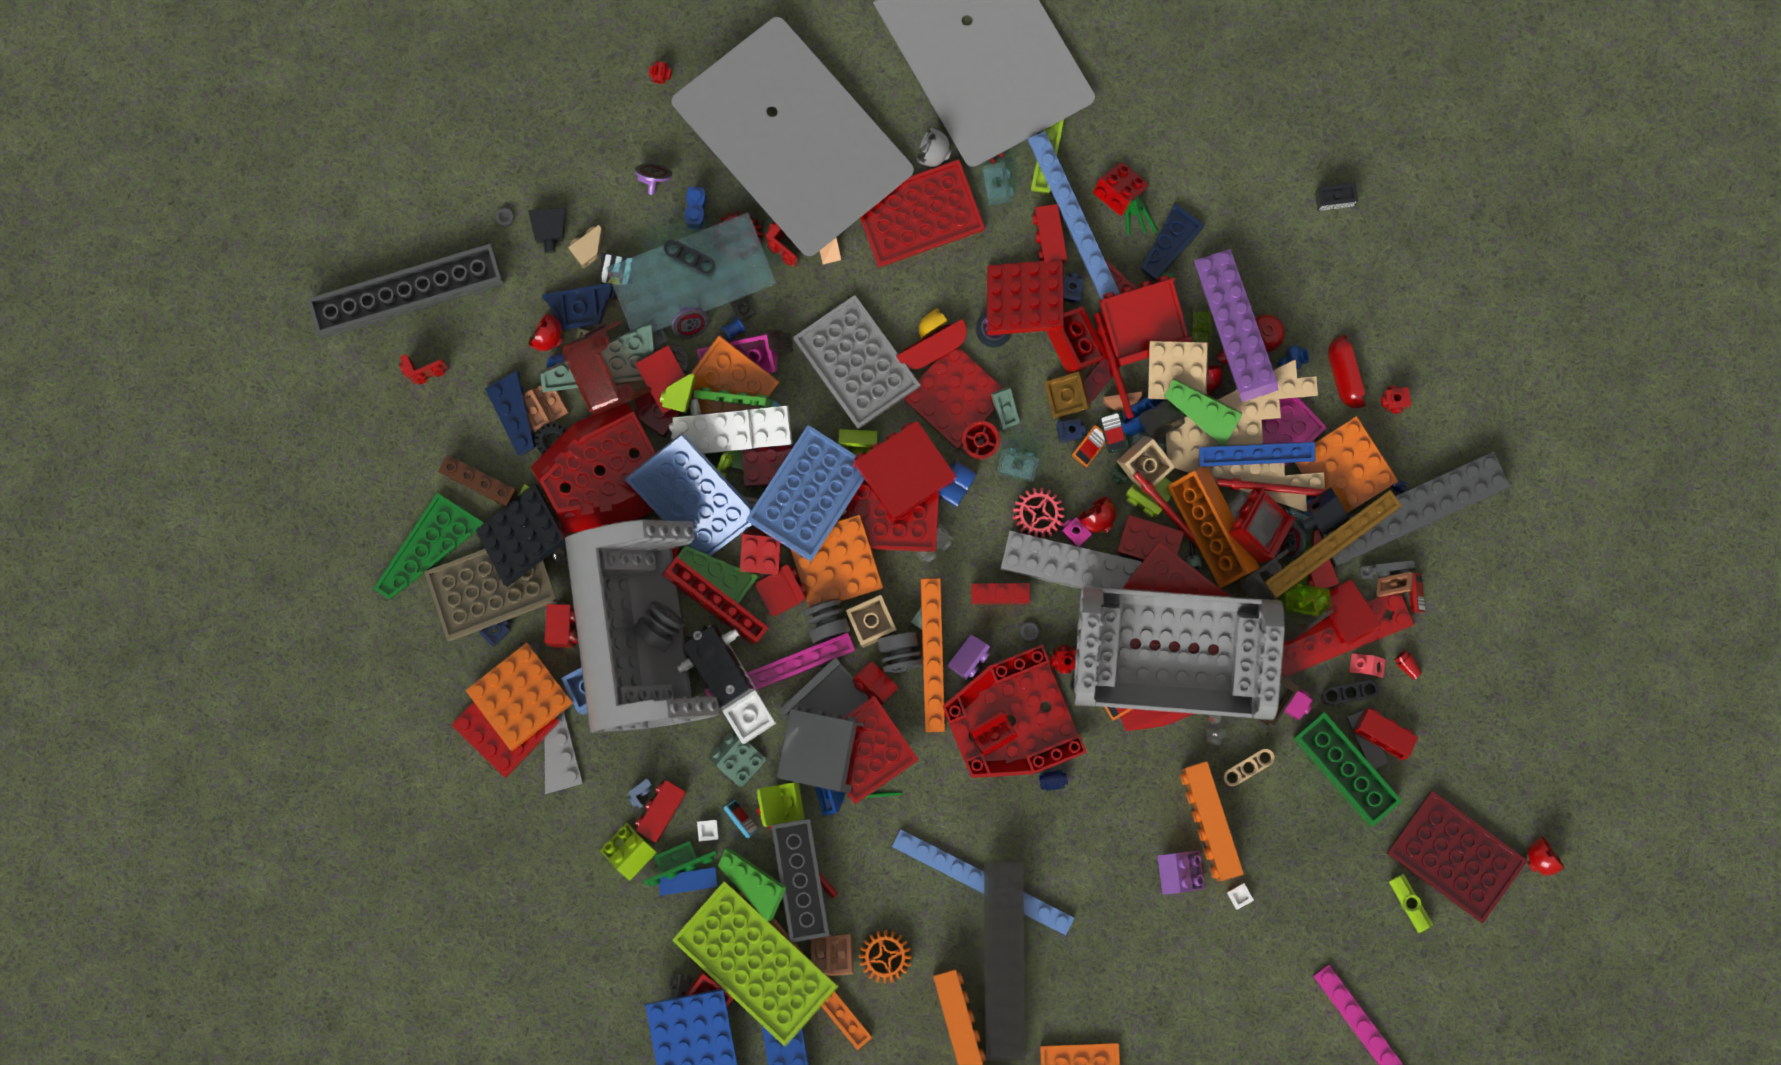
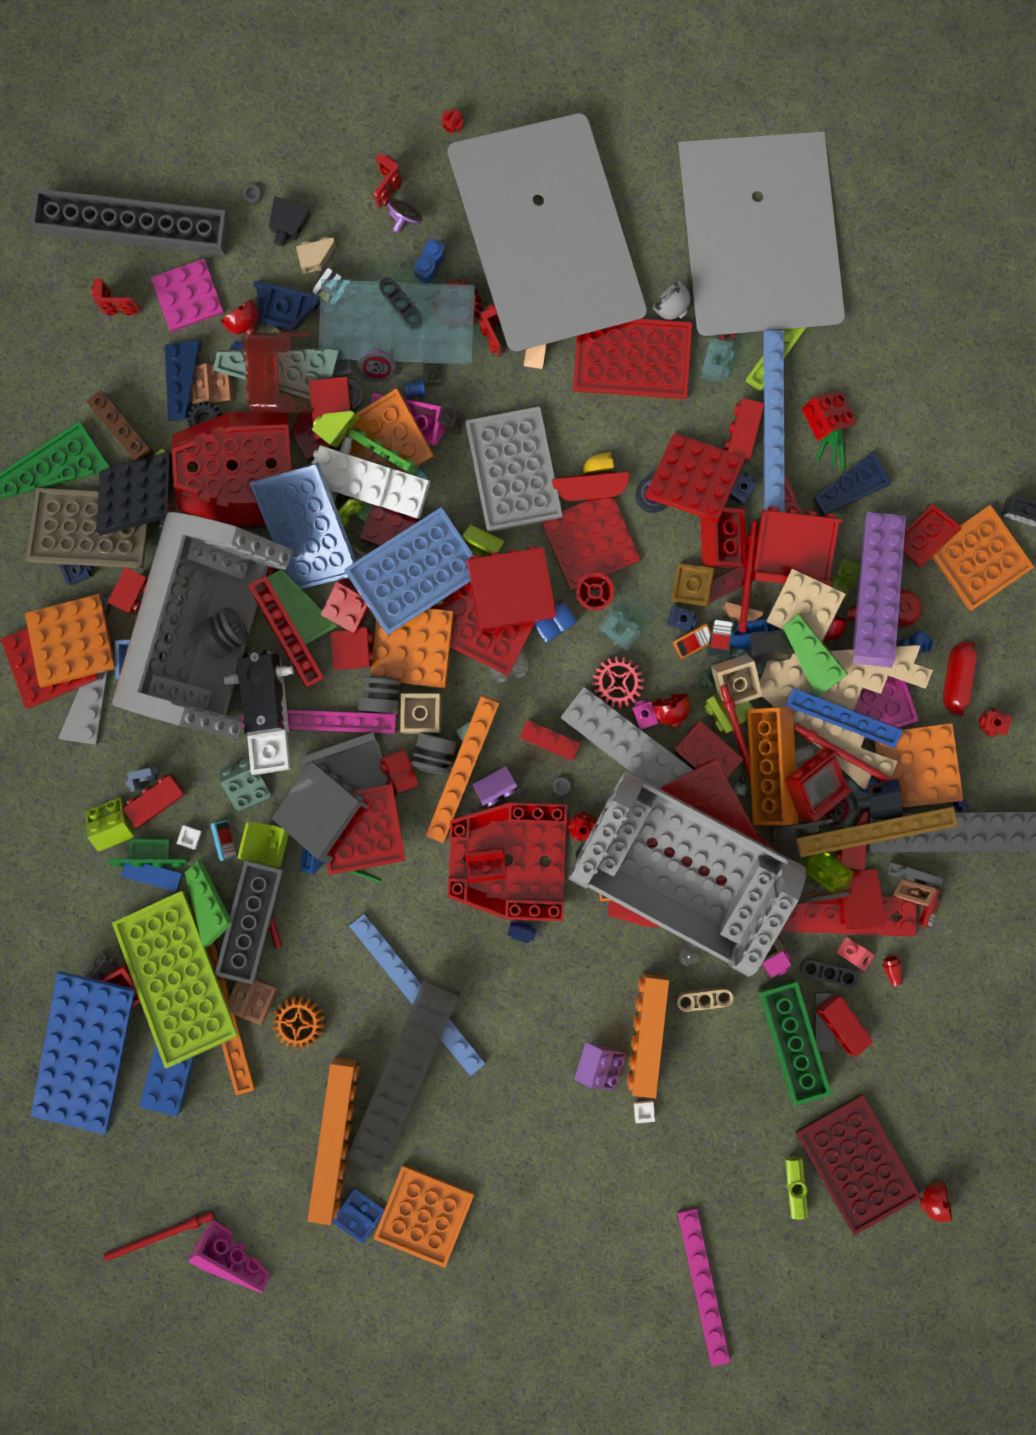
camera: 25 degrees right, 5 degrees up
(485, 334) = (187, 295): none -> dark pink plate
(623, 141) = (391, 182): none -> red bracket
(1005, 408) = (631, 571): sand green plate -> none
(1259, 257) = (928, 535): none -> red tile
(1315, 257) = (982, 558): none -> orange plate

